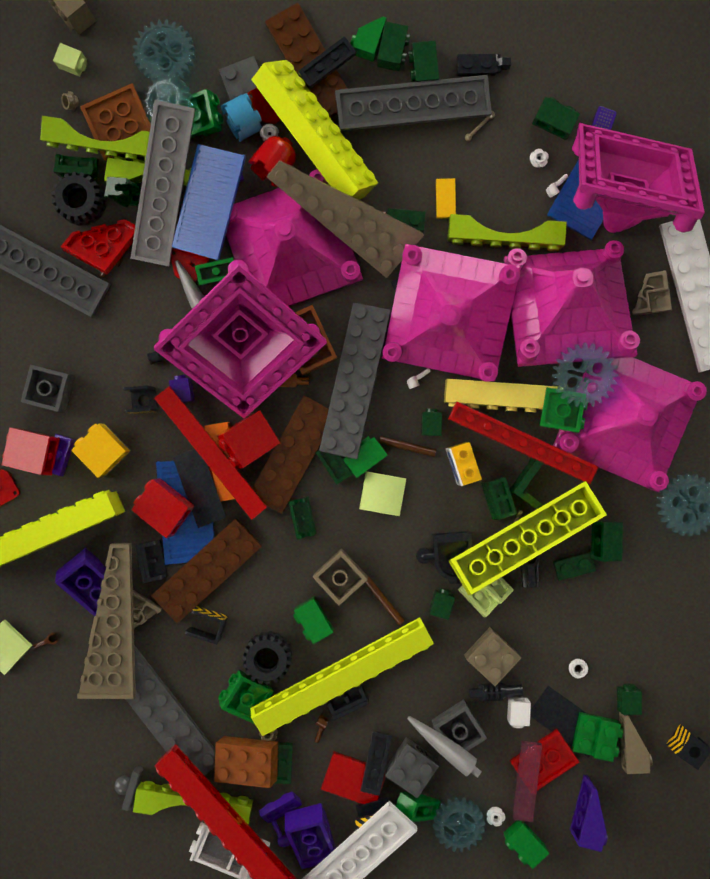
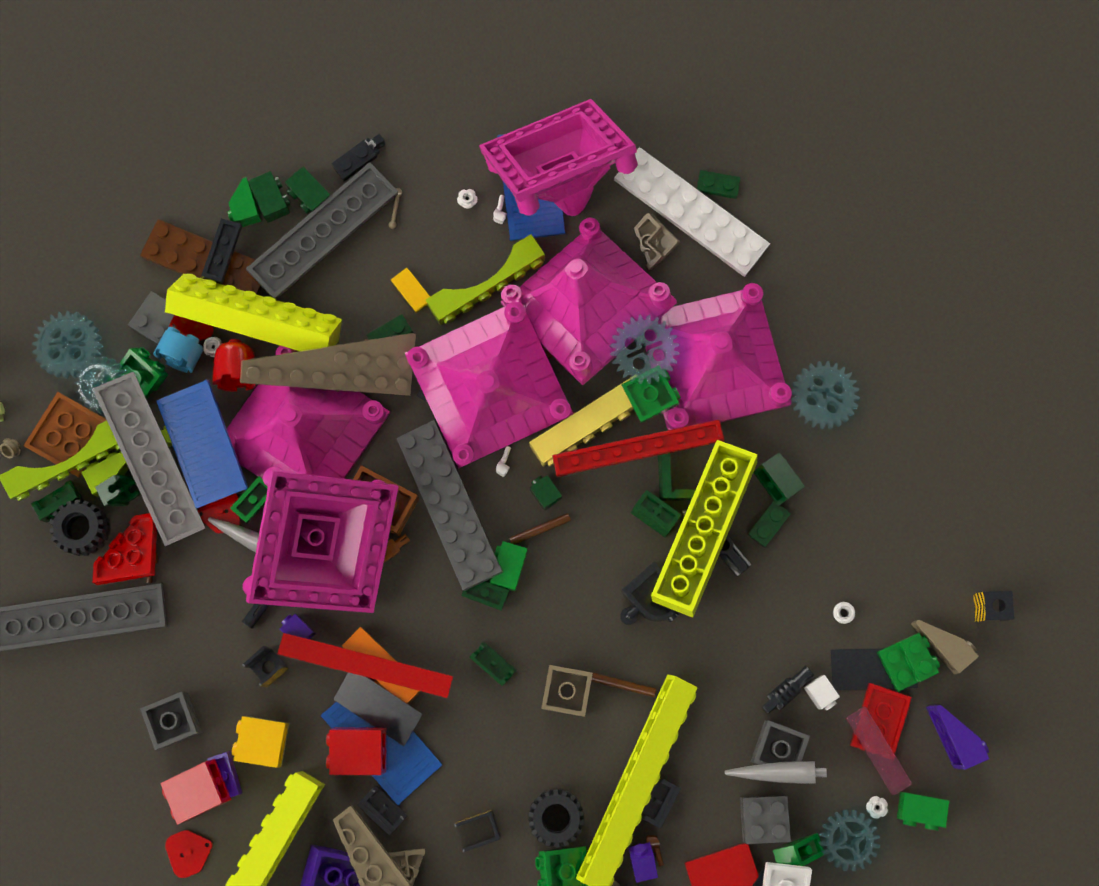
camera: 35 degrees left, 10 degrees down
(206, 570) = (440, 781): reddish brown plate -> none
(248, 440) = (391, 628): red brick -> none
(292, 455) = (441, 614): reddish brown plate -> none
(304, 732) = (643, 862): none -> dark purple brick
(313, 620) = (573, 751): green brick -> none
(375, 763) = (729, 840): black plate -> none
(382, 493) = (549, 587): yellowish green slope -> none
(442, 603) = (677, 646): dark green brick -> none
(463, 464) = (600, 505): yellow piece -> none
(488, 597) = (712, 608): yellowish green slope -> none
(492, 656) = (759, 659): dark tan brick -> none
(556, 118) = (456, 155): dark green brick -> none
(604, 118) = (497, 126): dark purple slope -> none
(629, 700) = (909, 605): dark green brick -> none

